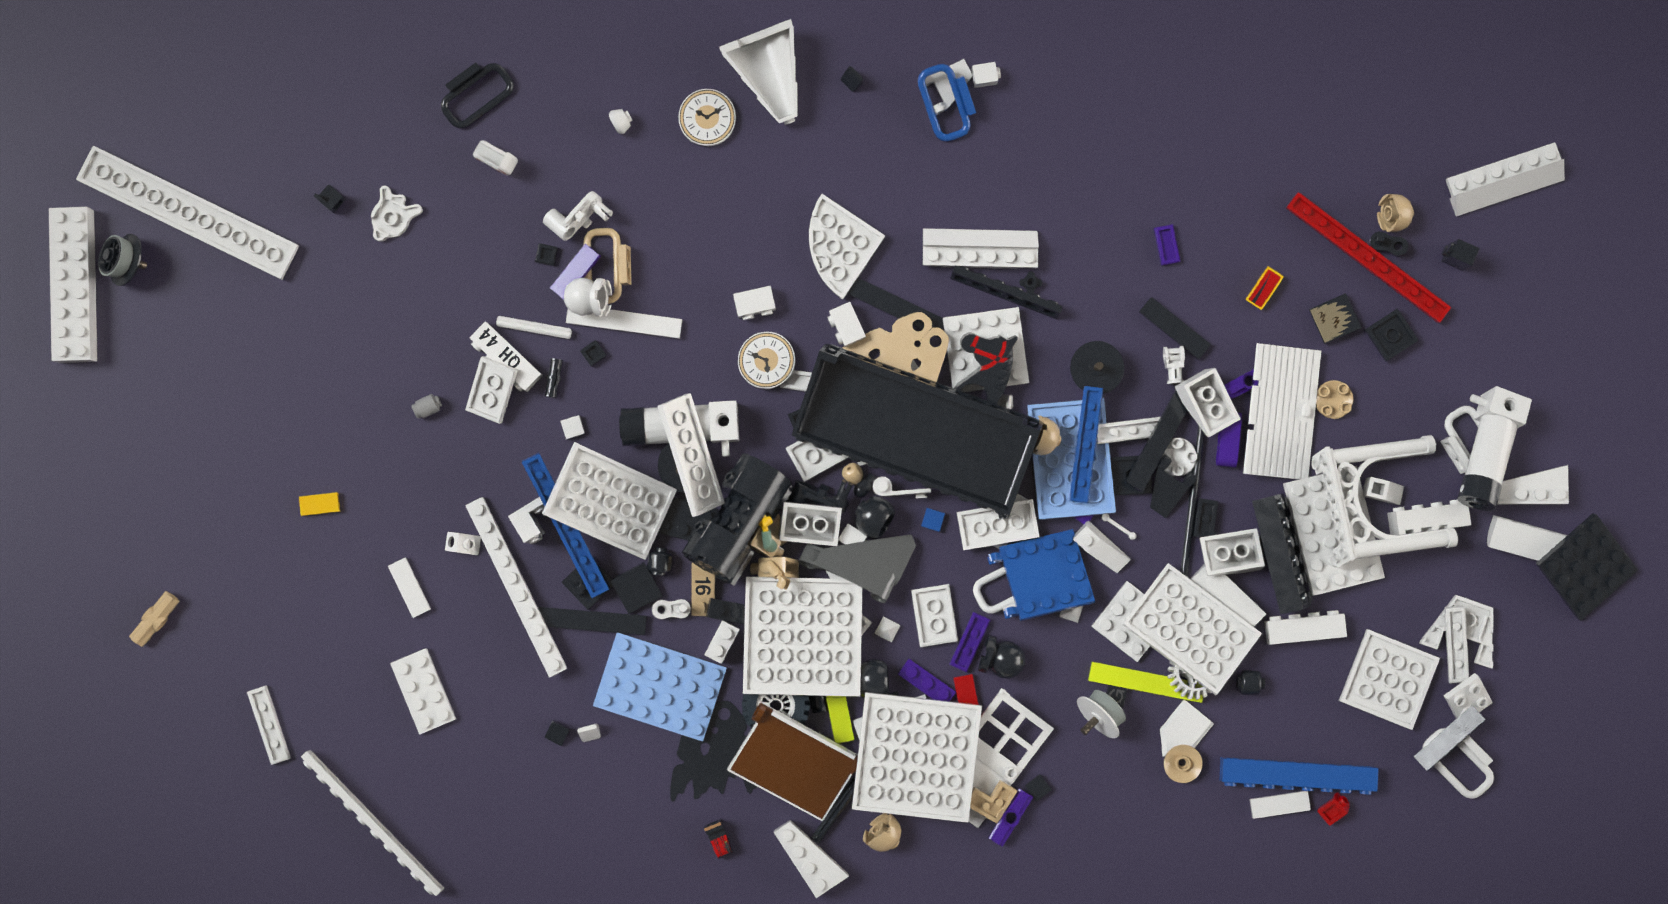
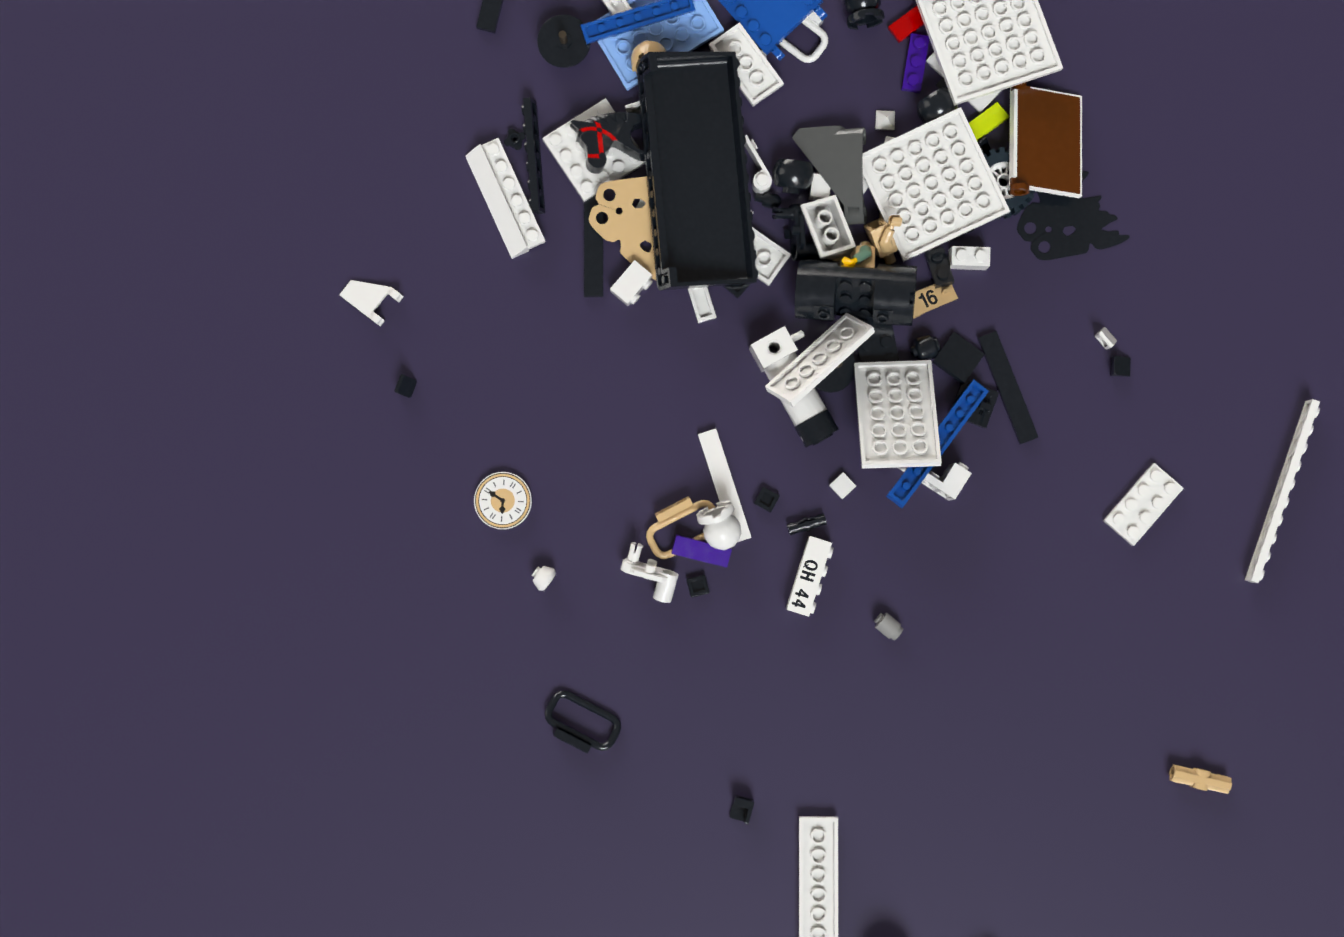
camera: 115 degrees left, 0 degrees up
(268, 725) = (1241, 628): white tile -> none
(319, 504) = (1023, 680): yellow tile -> none
(391, 216) = (730, 744): white tile -> none
(409, 587) = (1057, 562): white tile -> none
(463, 543) = (995, 531): white bracket -> none
(491, 389) = (845, 574): white tile -> none
(495, 158) = (632, 674): white animal -> none
(516, 587) = (1010, 465): white plate -> none
(534, 327) = (769, 564): white axle -> none
(659, 686) = (1035, 295): light blue plate -> none
(677, 609) = (959, 314): white piece -> none
(719, 838) = (1142, 179): leg -> none
(754, 302) = (651, 375): white brick -> none
(766, 360) = (698, 340): tile -> none
(768, 68) = (430, 464): white cone -> none
(811, 861) = (1123, 84): white wedge -> none
(834, 813) = (1084, 91): black axle -> none
(840, 244) = (562, 324): white plate -> none
(852, 473) = (762, 214): tan piece -> none
(884, 833) = (1068, 36): tan cylinder -> none
(933, 519) = (768, 125): blue tile -> none
(934, 615) = (852, 84): white tile -> none
(961, 95) = (376, 276): blue bar -> none
(969, 642) = (861, 42): dark purple tile -> none
(985, 74) = (344, 267): white brick -> none
(1167, 245) = (422, 35): dark purple tile -> none

